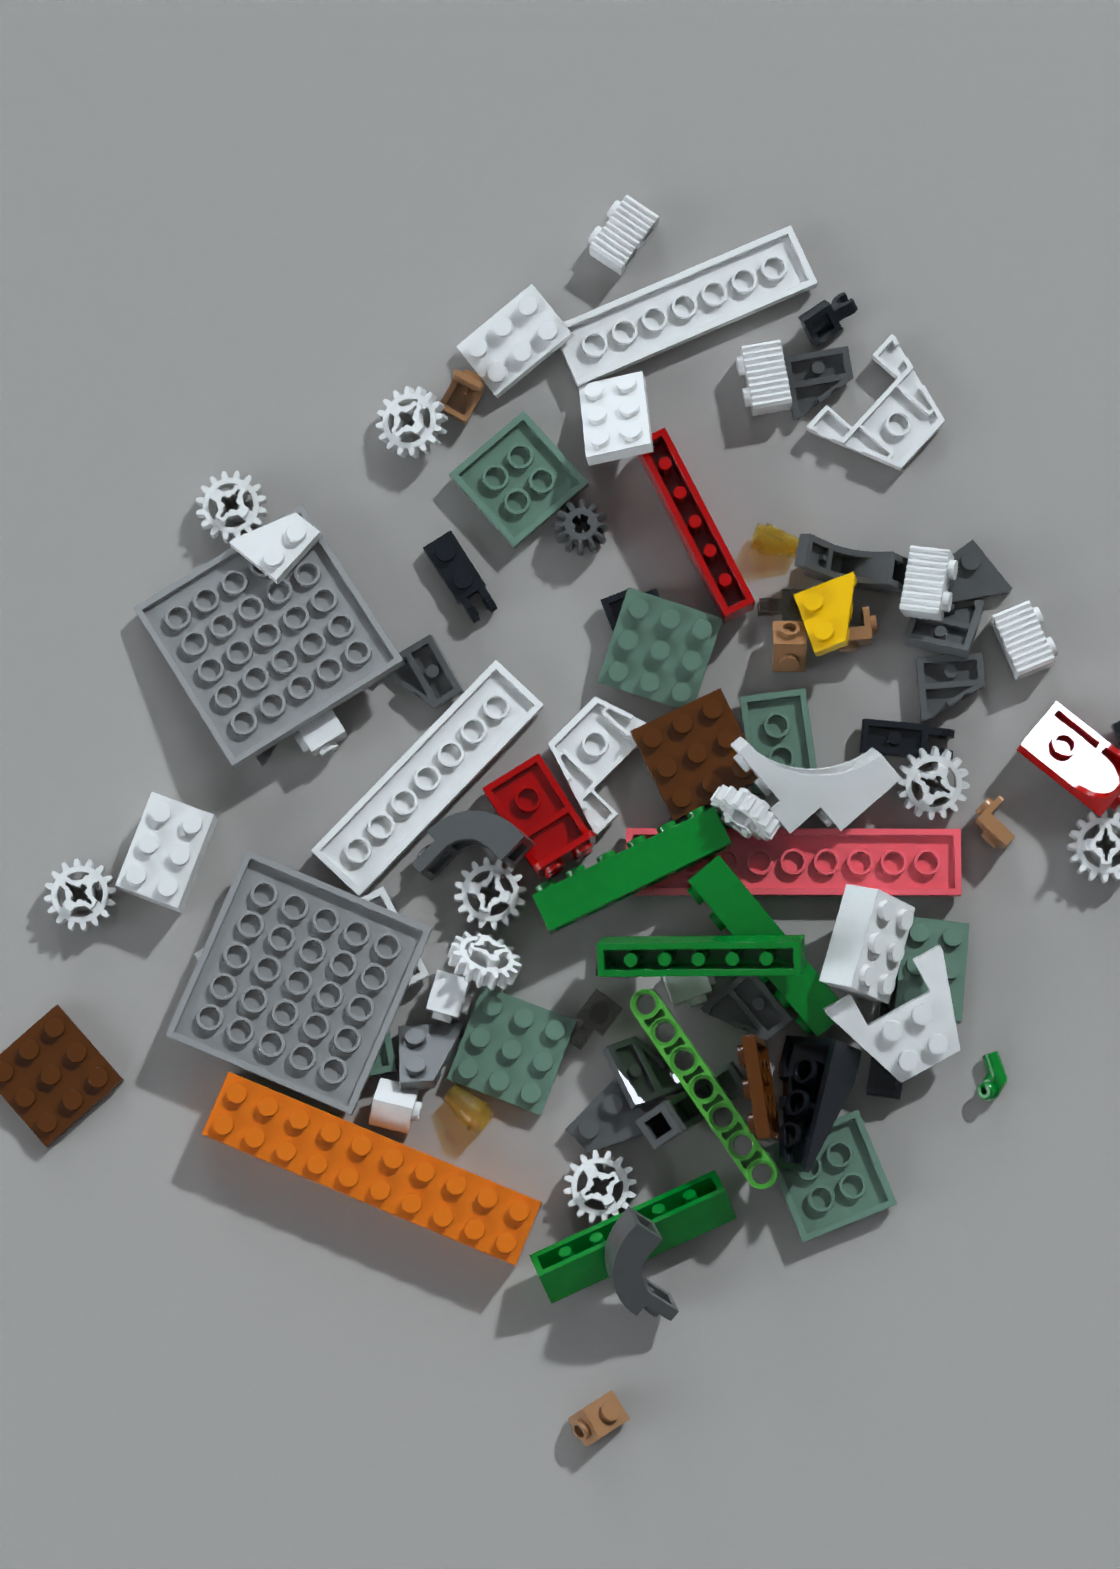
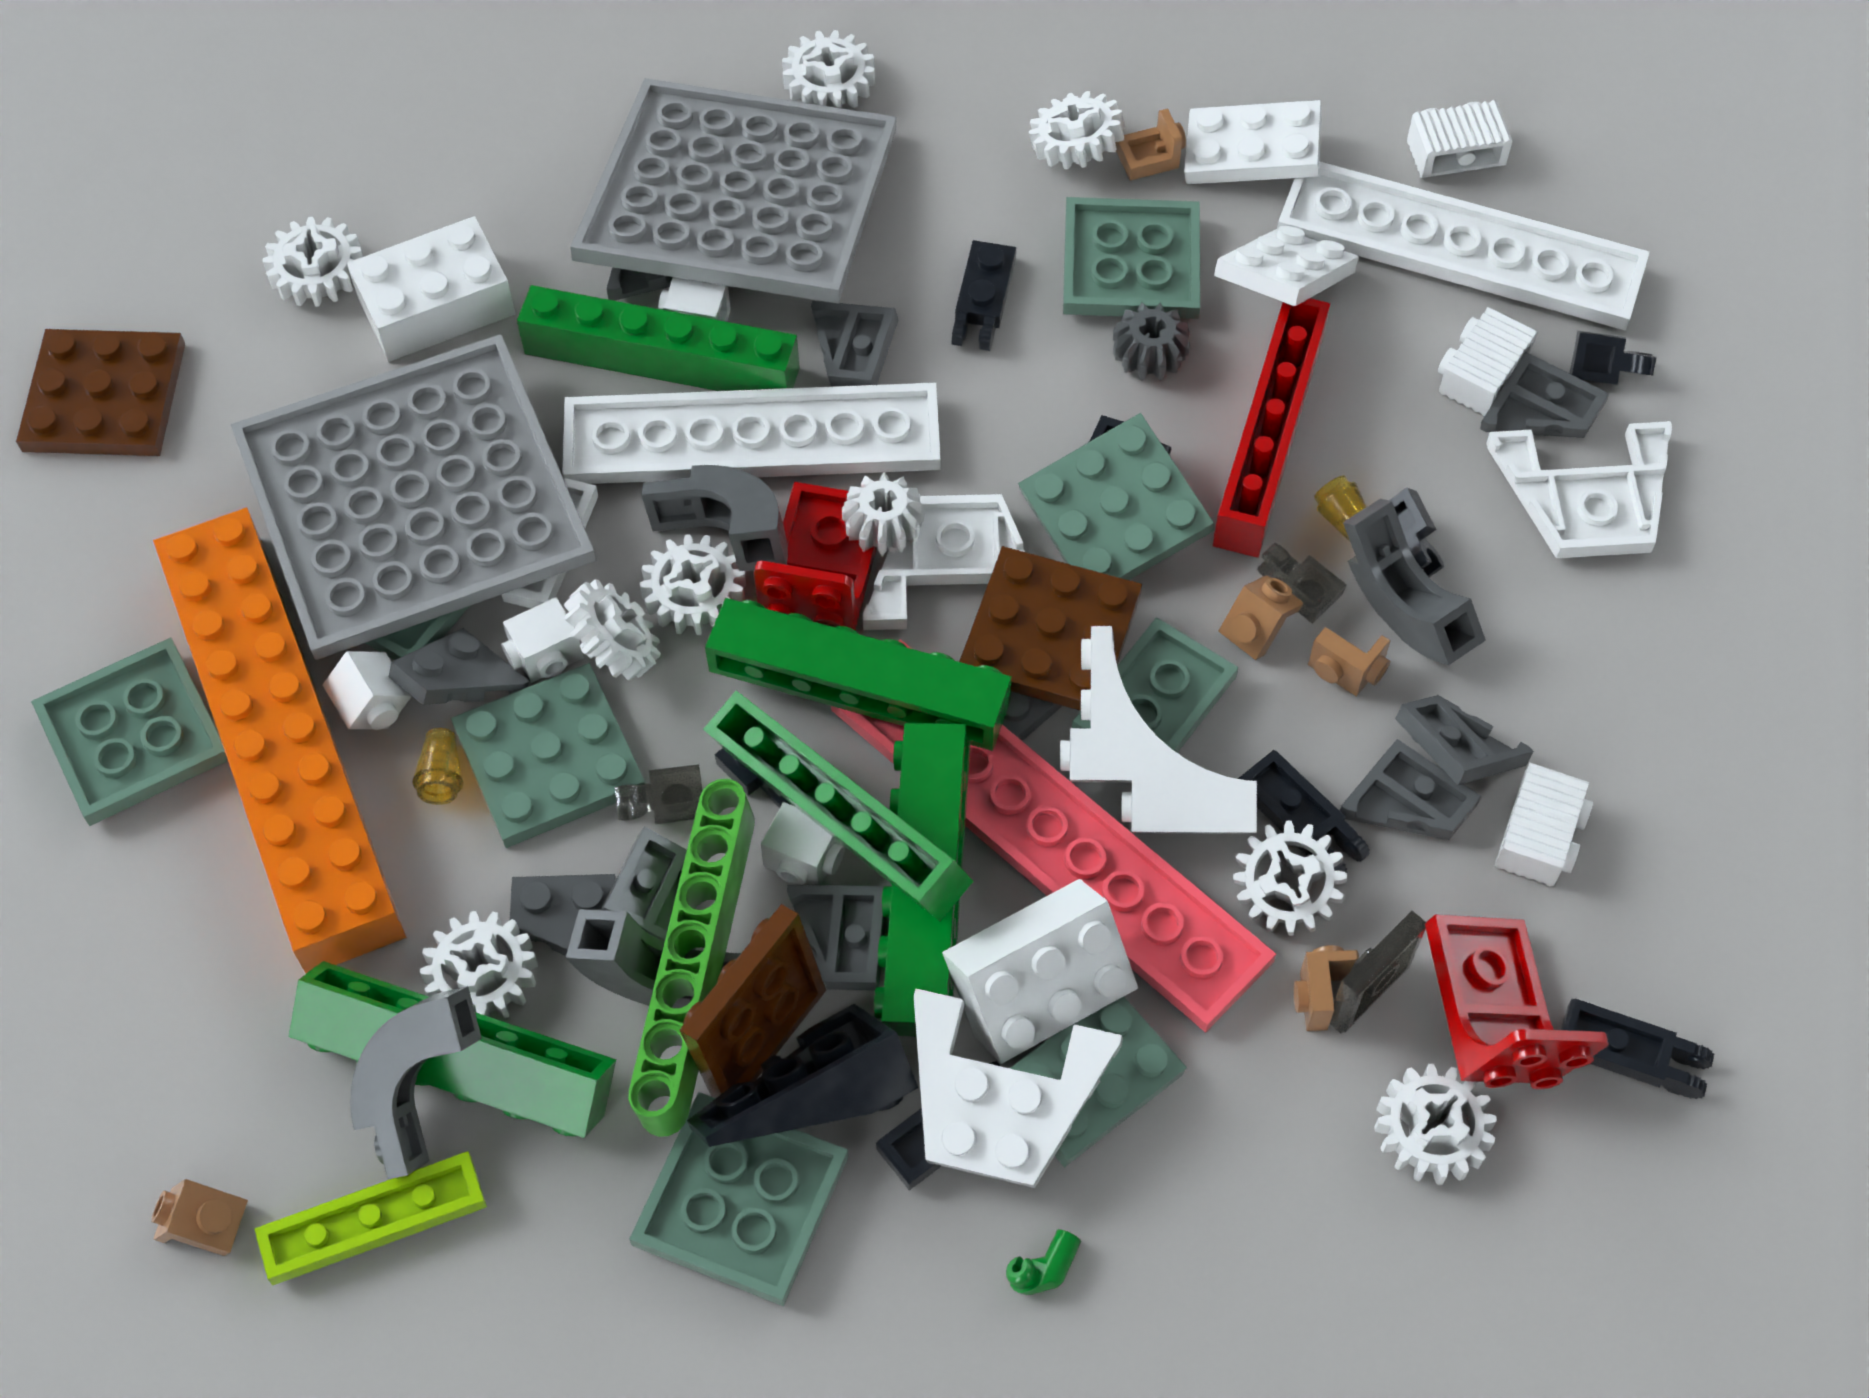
camera: 40 degrees right, 20 degrees down
(278, 545) = (834, 123): white wing -> none
(295, 1235) = (130, 731): none -> sand green plate
(326, 772) = (655, 342): none -> green brick
(542, 773) = (883, 514): none -> white gear
(676, 1344) = (369, 1218): none -> lime plate
(745, 812) = (1039, 709): white gear -> none
(816, 522) = (1416, 527): none -> black plate
(827, 613) = (1337, 605): yellow wing -> none
(927, 583) = (1481, 668): white brick -> none
(976, 576) = (1533, 712): dark grey wing -> none
(1018, 797) = (1377, 971): none -> clear smoke plate

